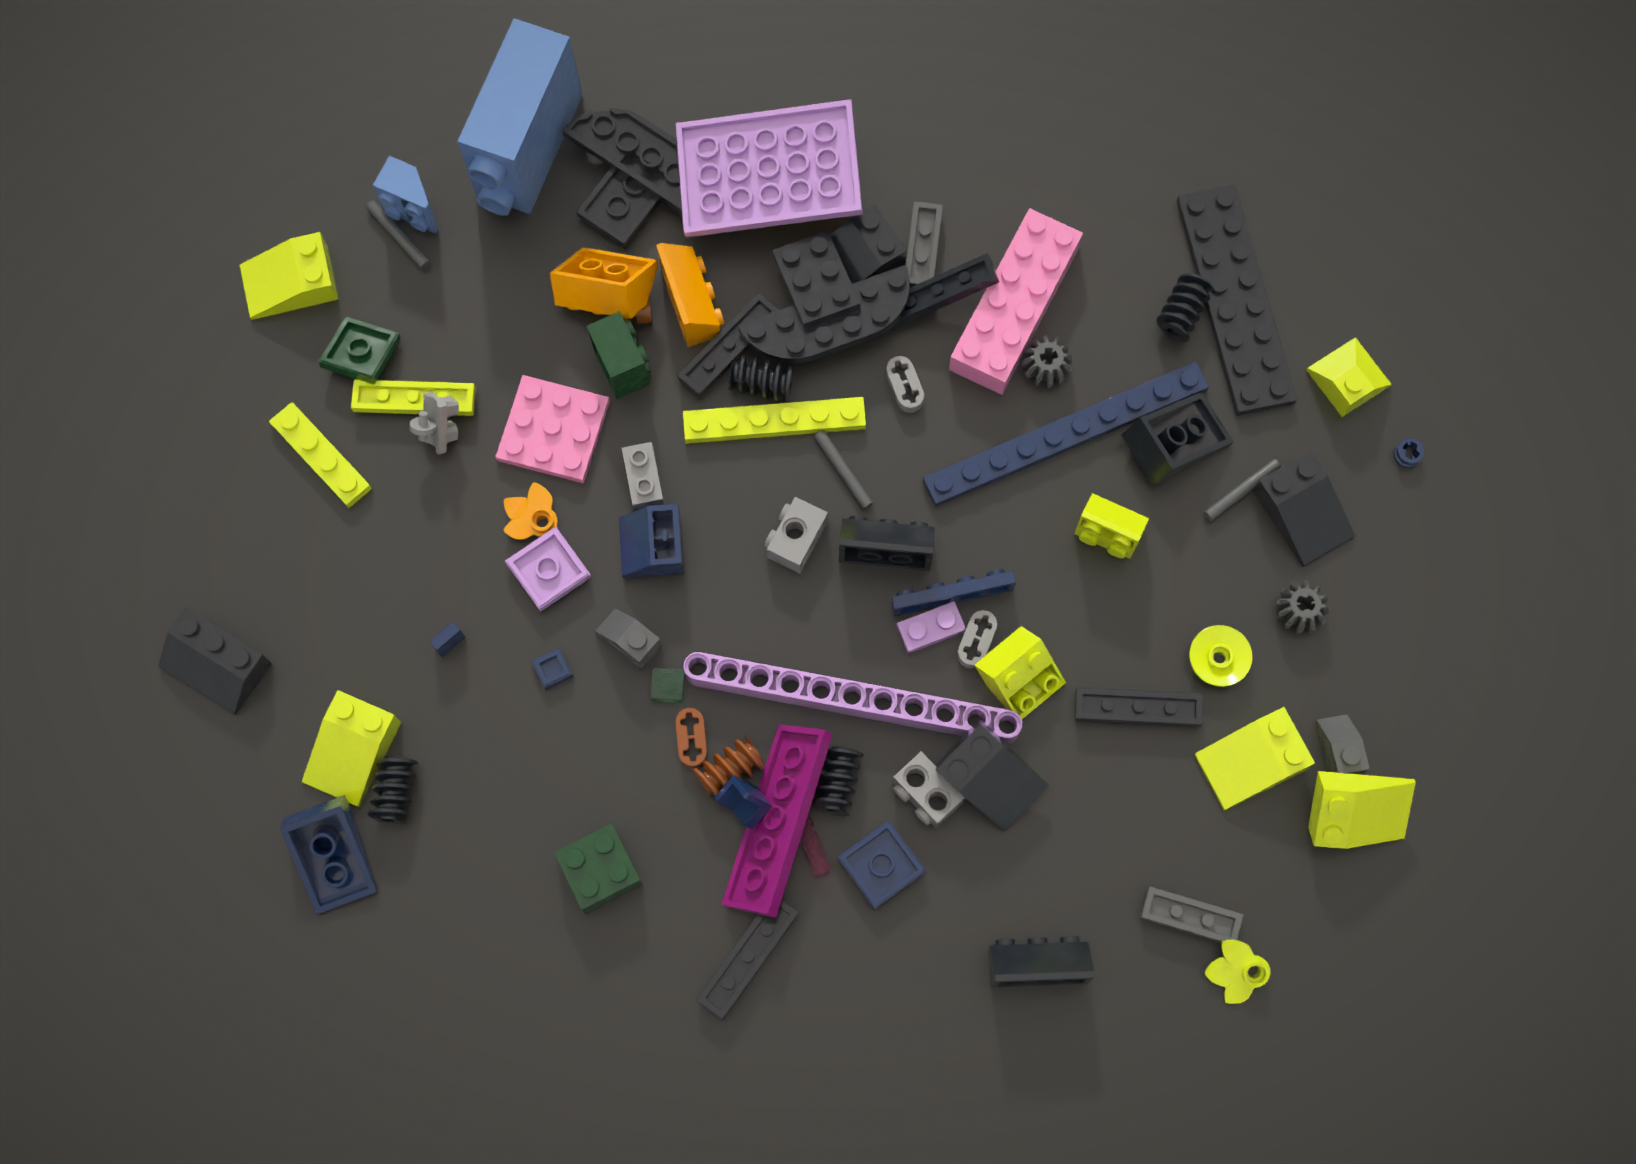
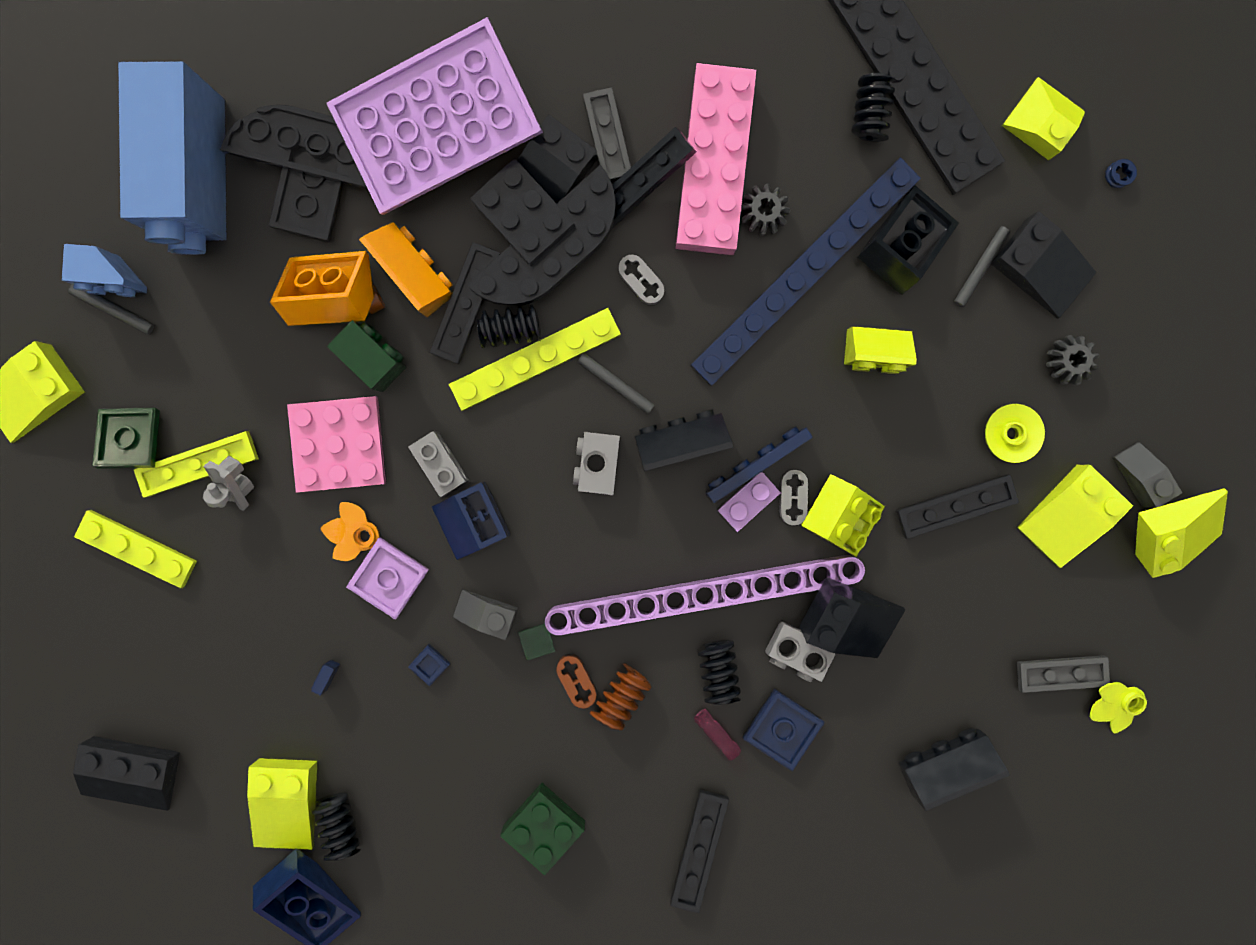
camera: 20 degrees left, 15 degrees up
(744, 800) = (648, 722): dark blue panel -> none
(771, 846) = (681, 729): magenta plate -> none

